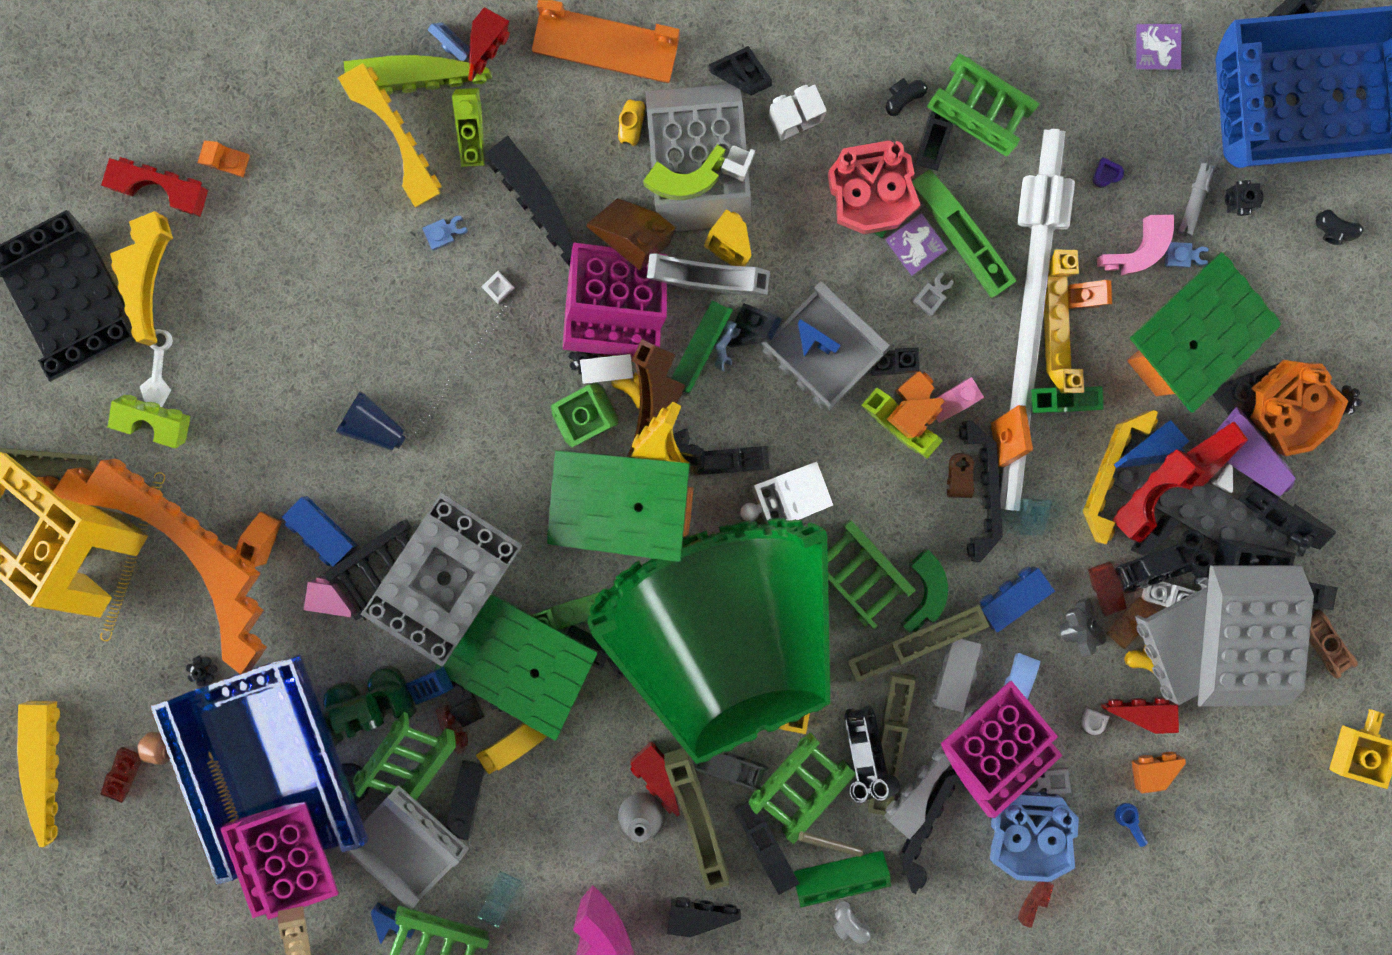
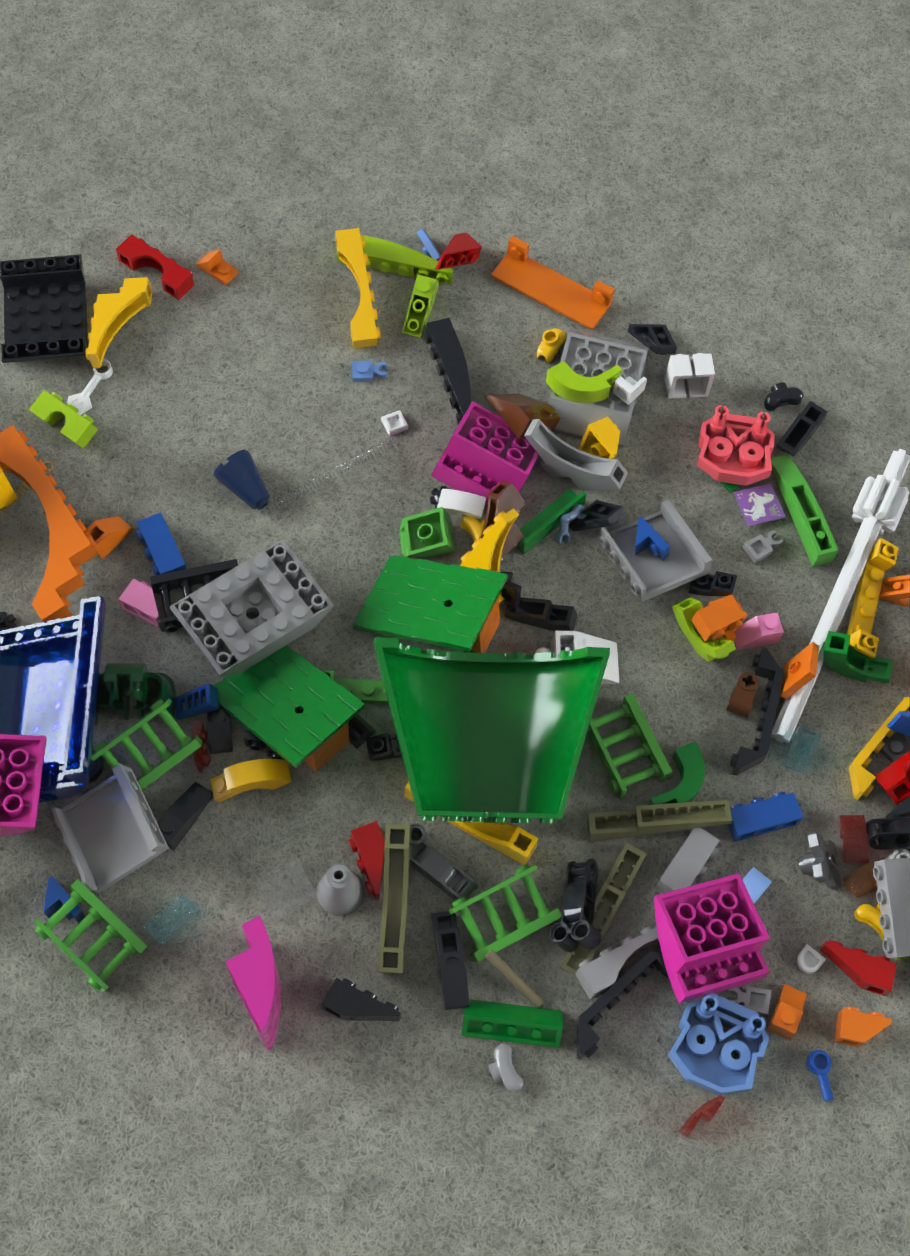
camera: 15 degrees right, 25 degrees down
(973, 122) = (837, 429): bright green fence -> none
(1087, 781) = (787, 1012): none -> orange arch

